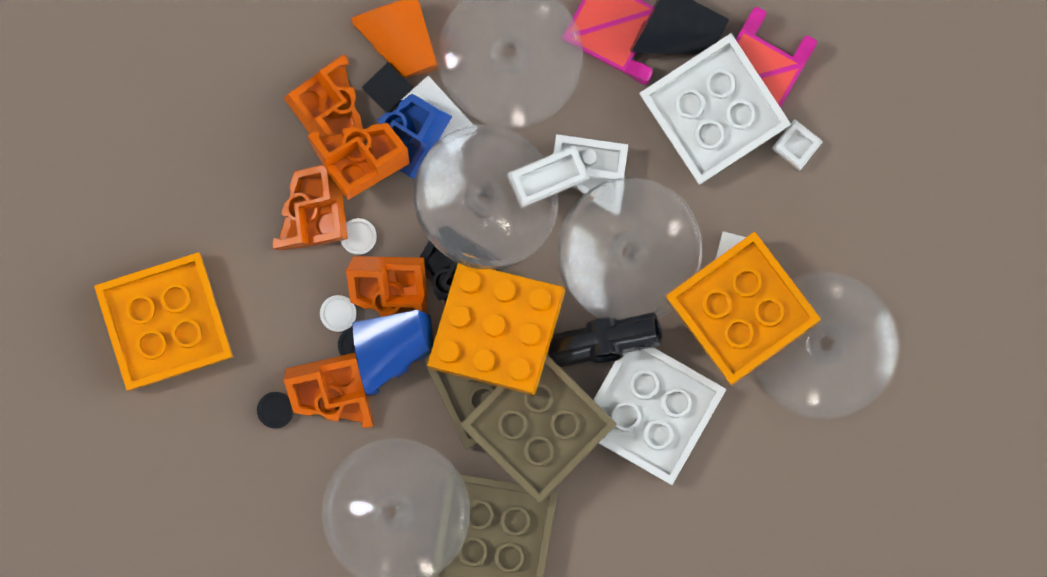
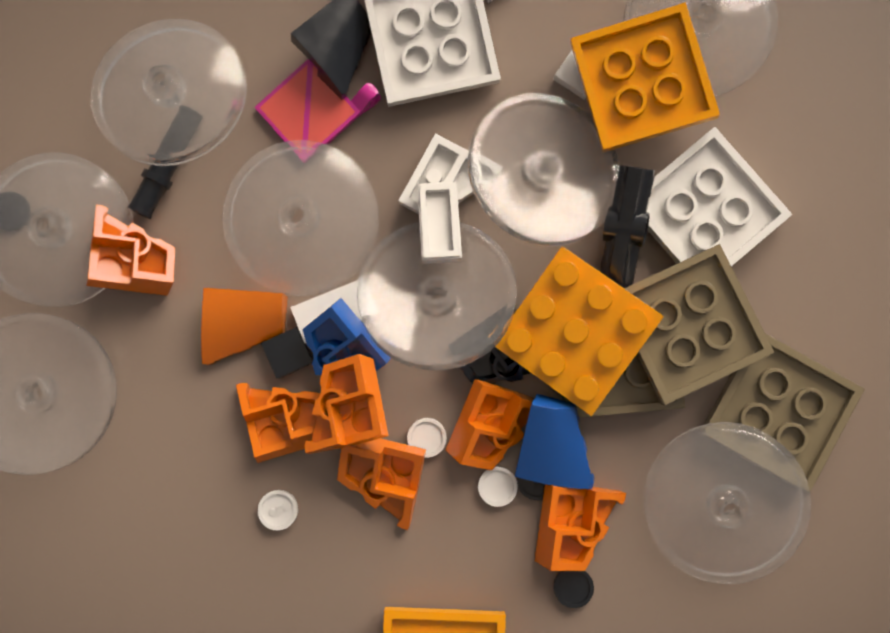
camera: 60 degrees left, 0 degrees up
(249, 131) = (278, 510): none -> white piece

